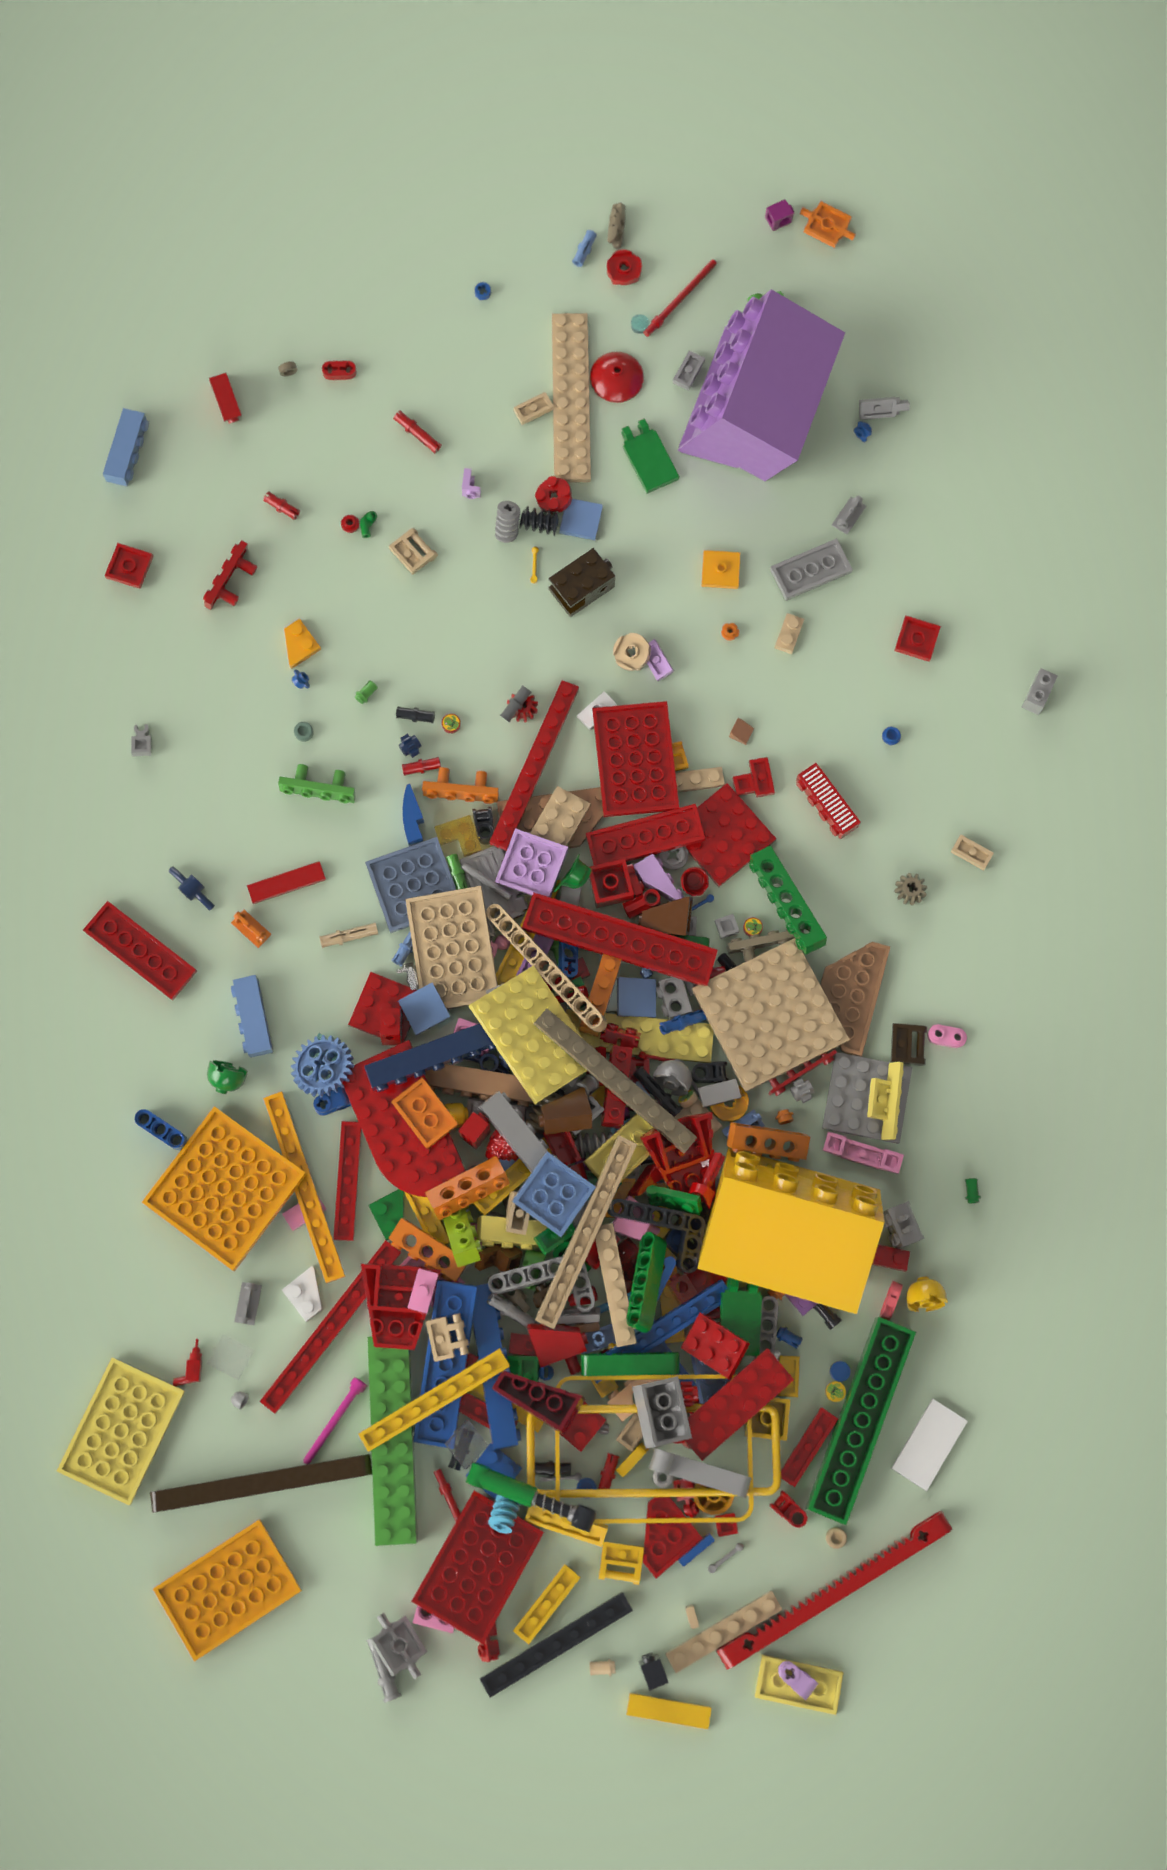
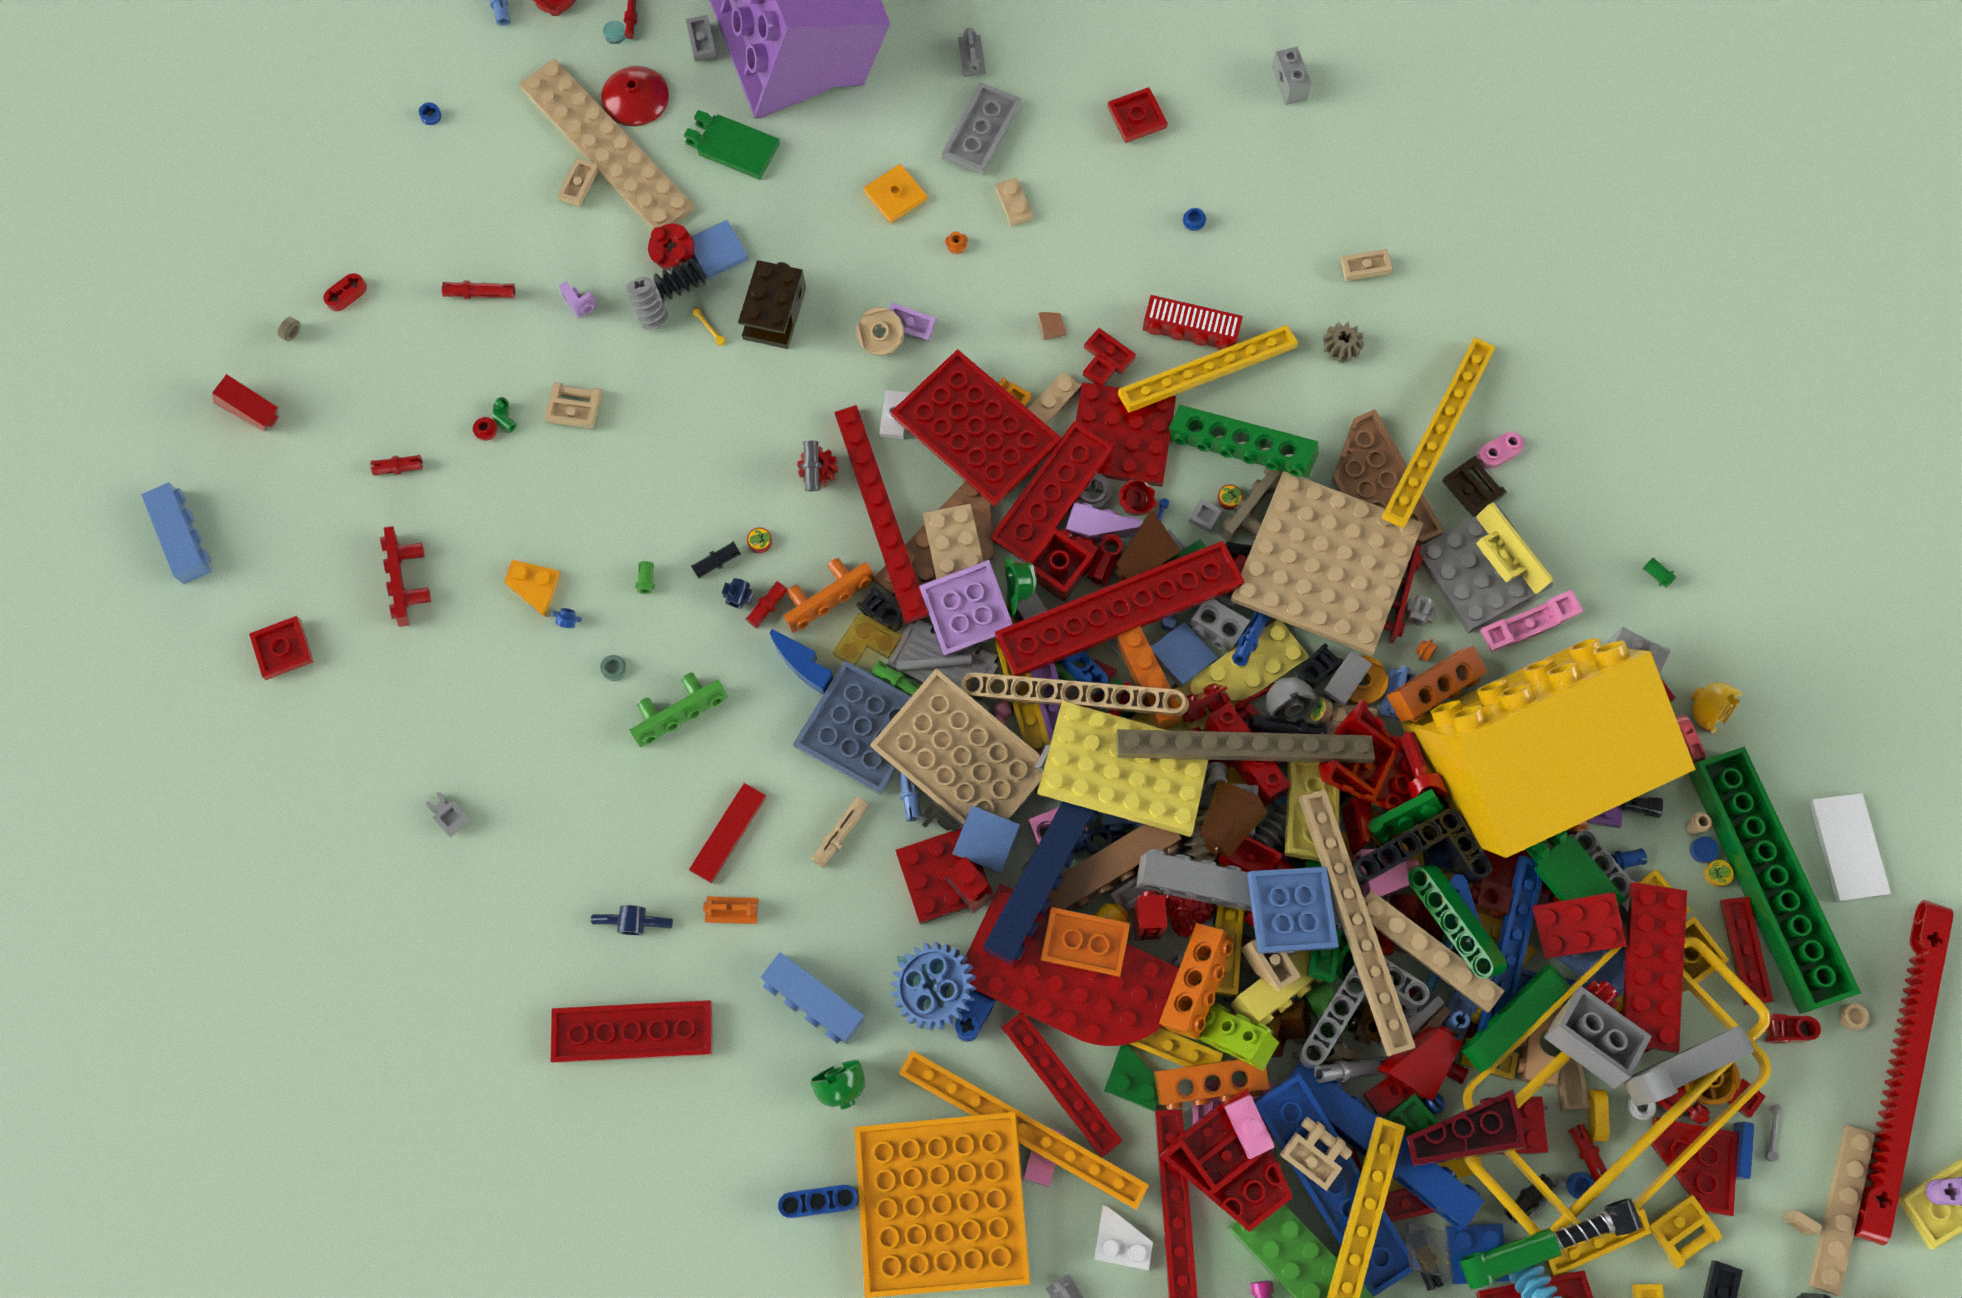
camera: 35 degrees left, 5 degrees down
(810, 837) = (1207, 368): none -> yellow plate
(852, 1349) = (1698, 824): none -> tan pin
(913, 992) = (1438, 433): none -> yellow plate

